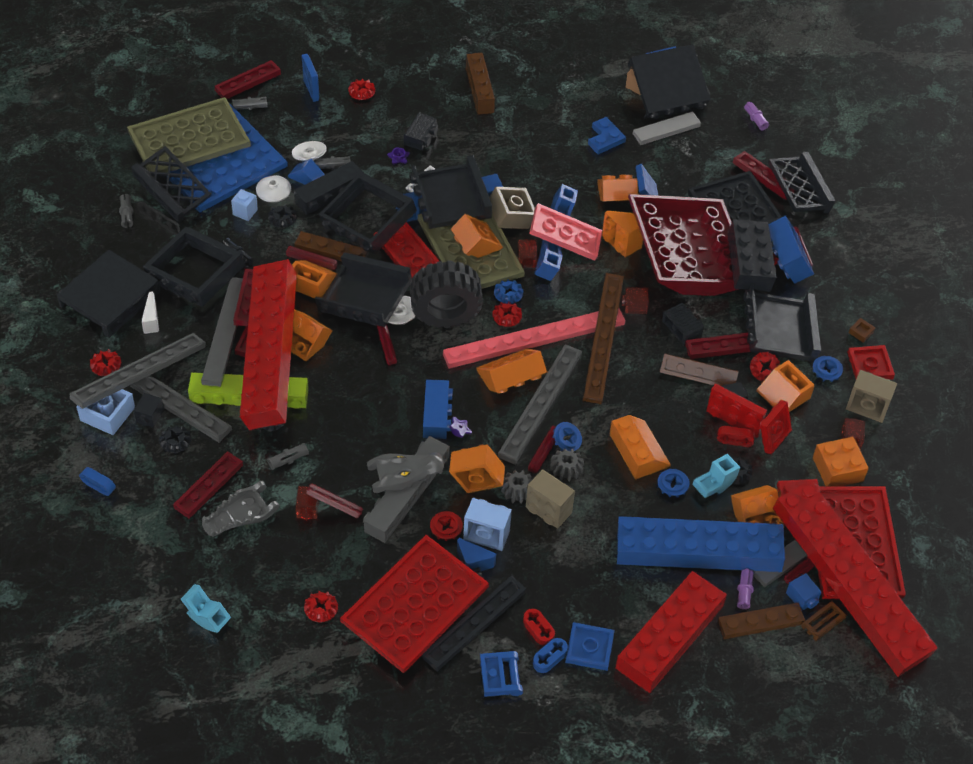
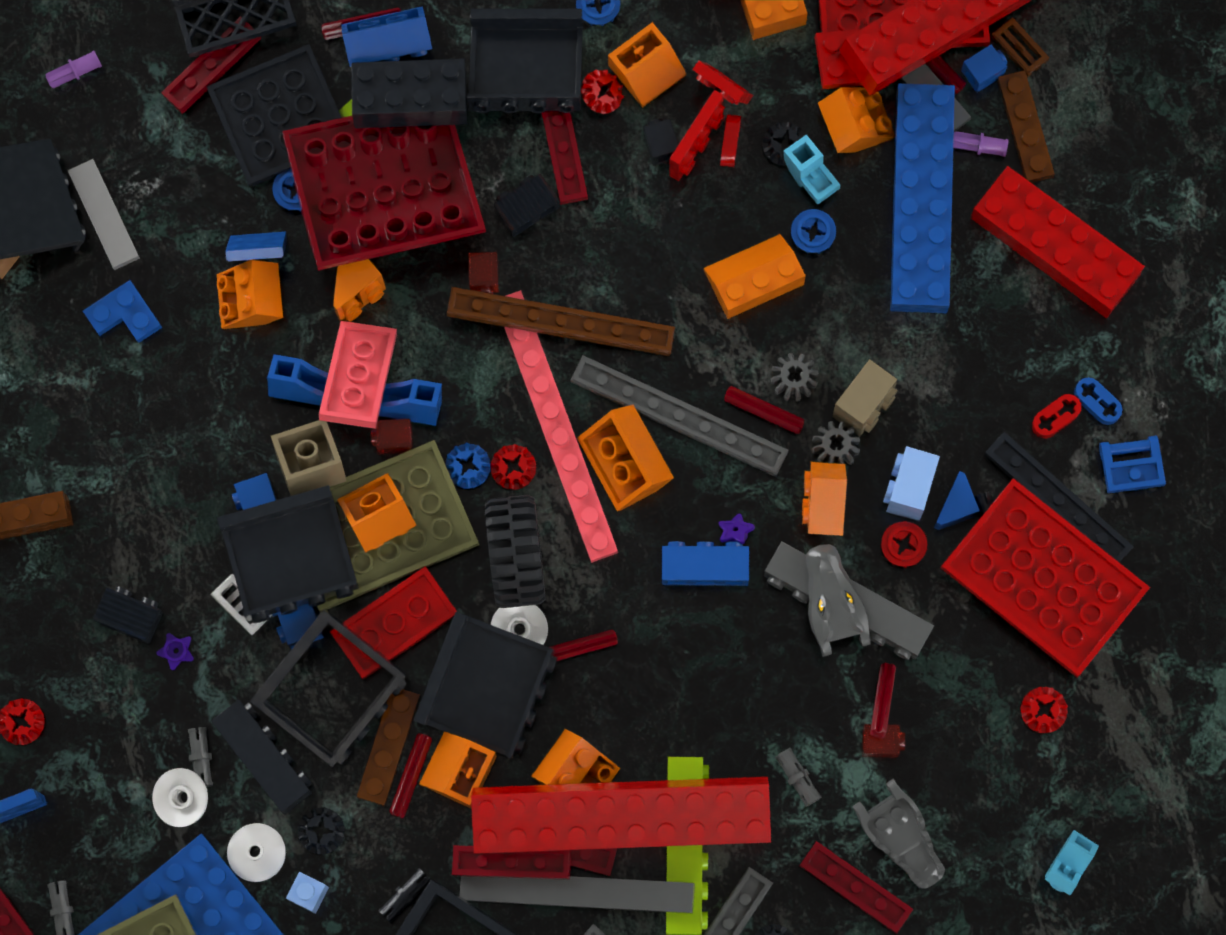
camera: 85 degrees left, 25 degrees up
(306, 172) = (227, 797): blue slope -> none
(564, 429) = (747, 366): blue gear -> none
(590, 646) = (1079, 349): blue tile -> none
(697, 370) = (616, 186): reddish brown plate -> none

